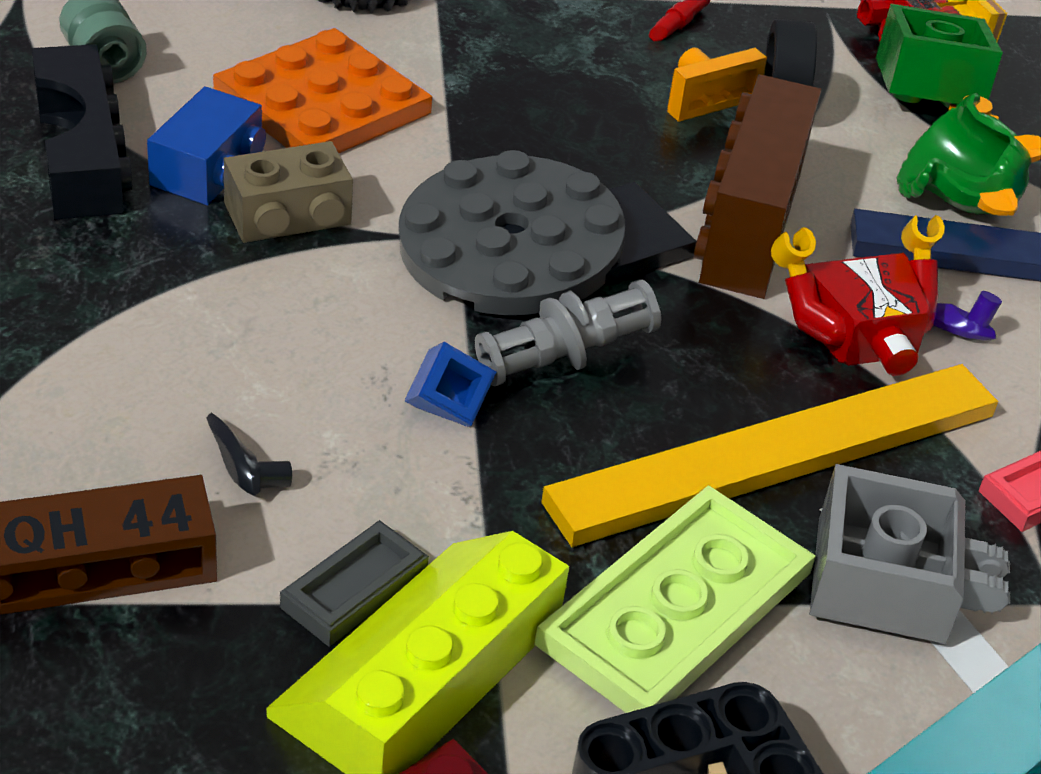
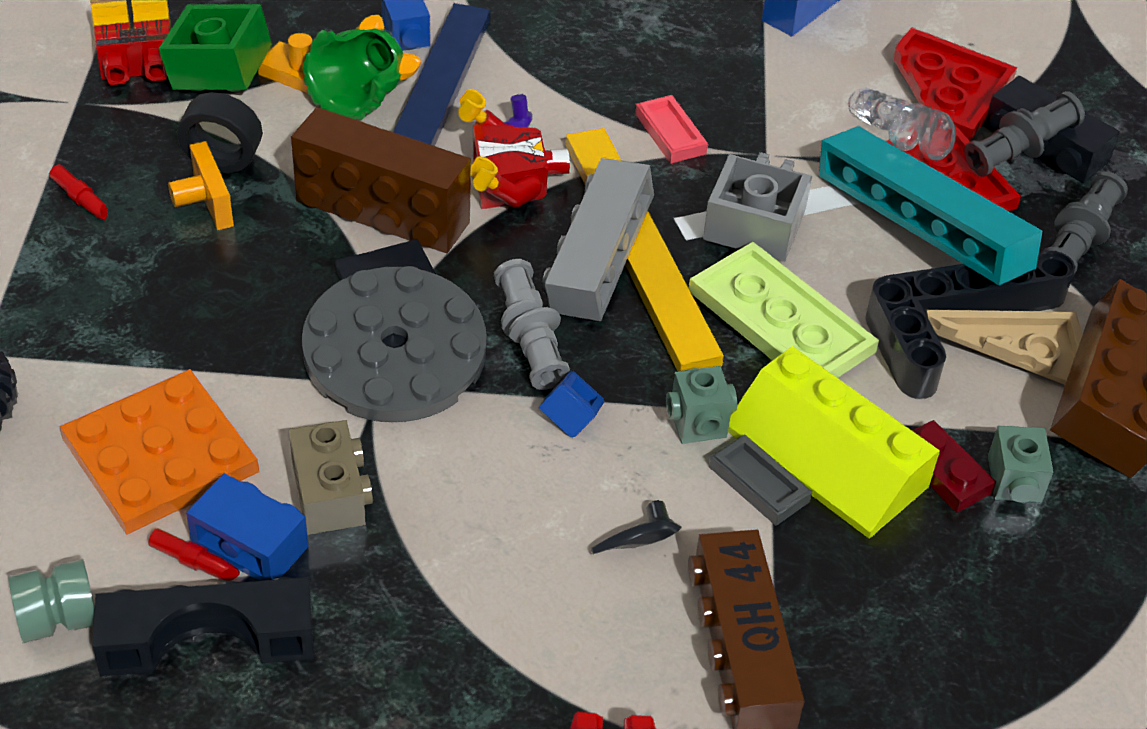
camera: 80 degrees left, 5 degrees up
(460, 494) = (701, 404): none -> sand green brick
(745, 383) = (599, 239): none -> light grey brick

